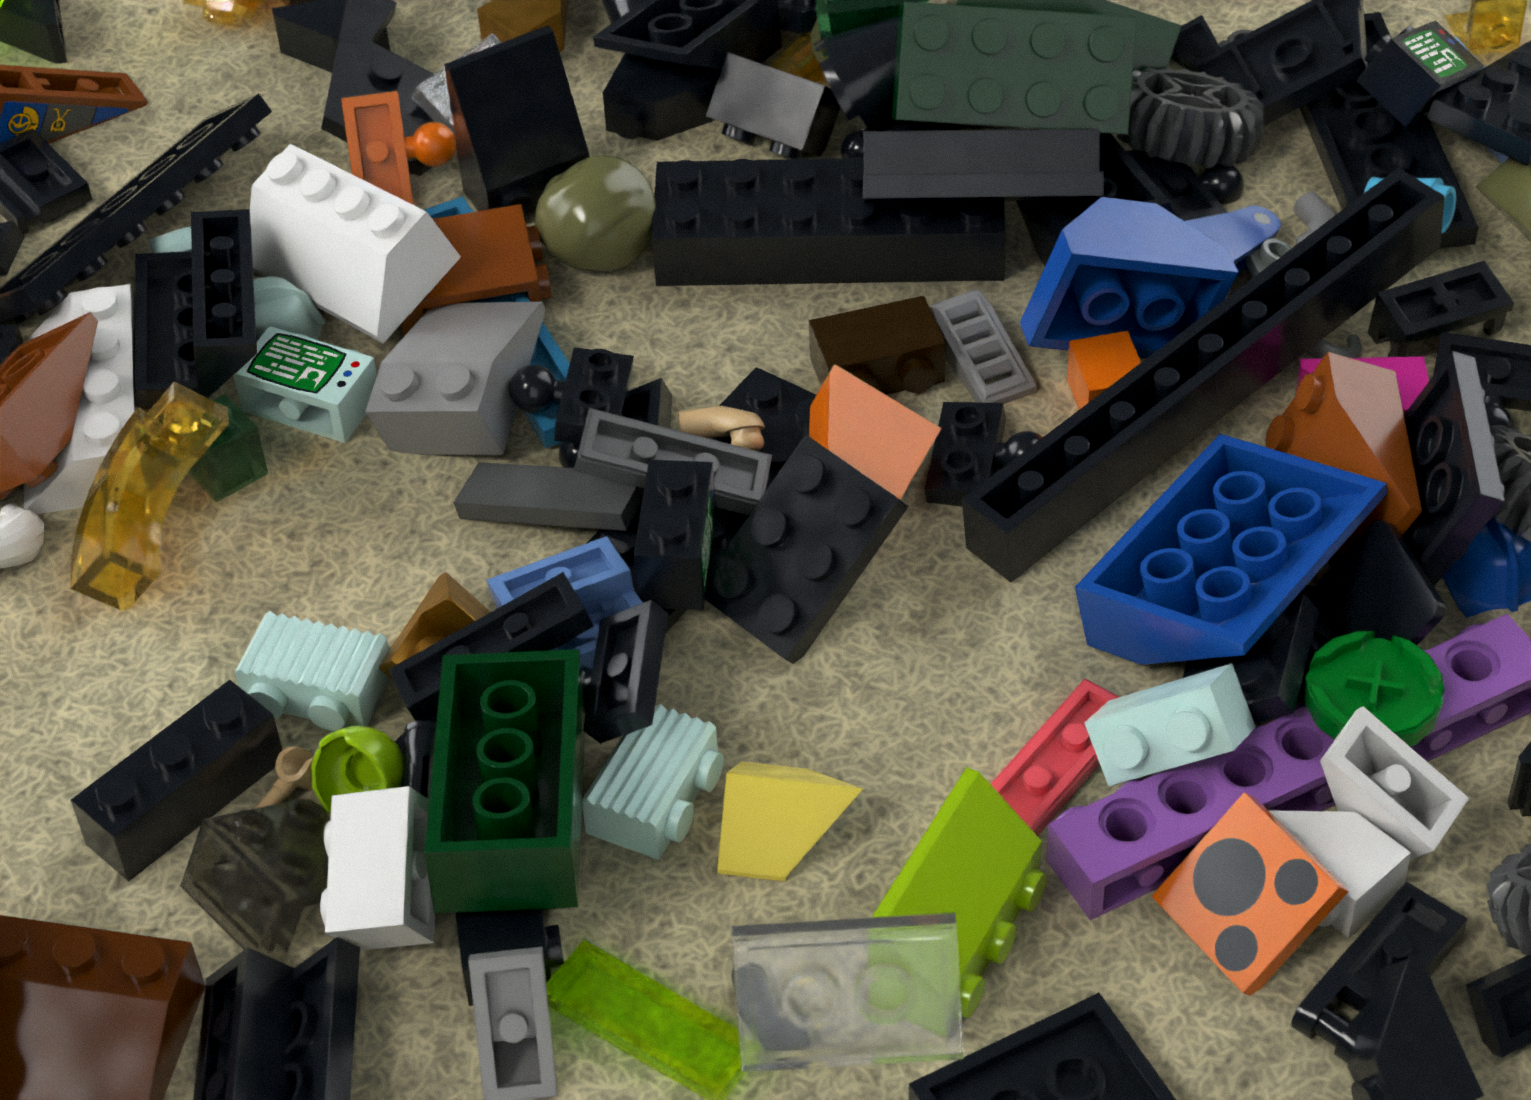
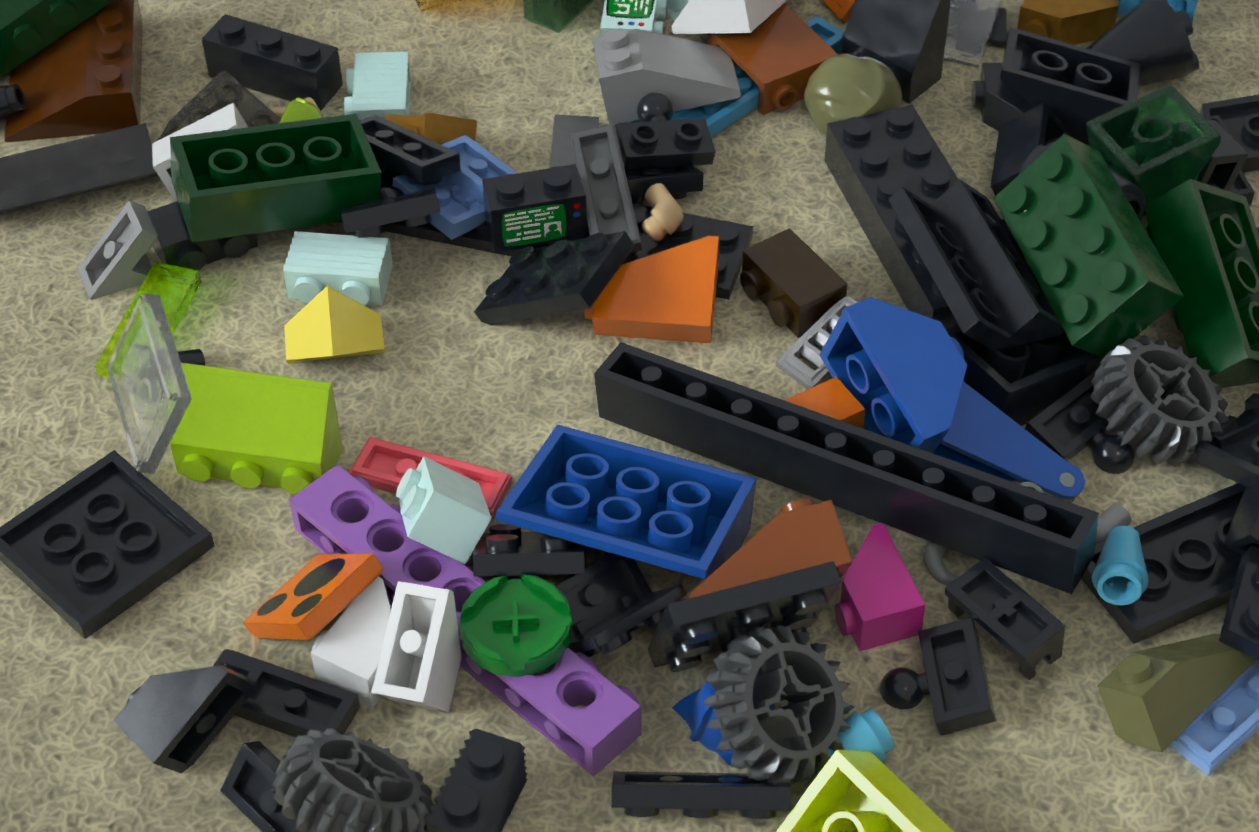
camera: 70 degrees right, 0 degrees up
(970, 450) = (734, 359): black plate -> none

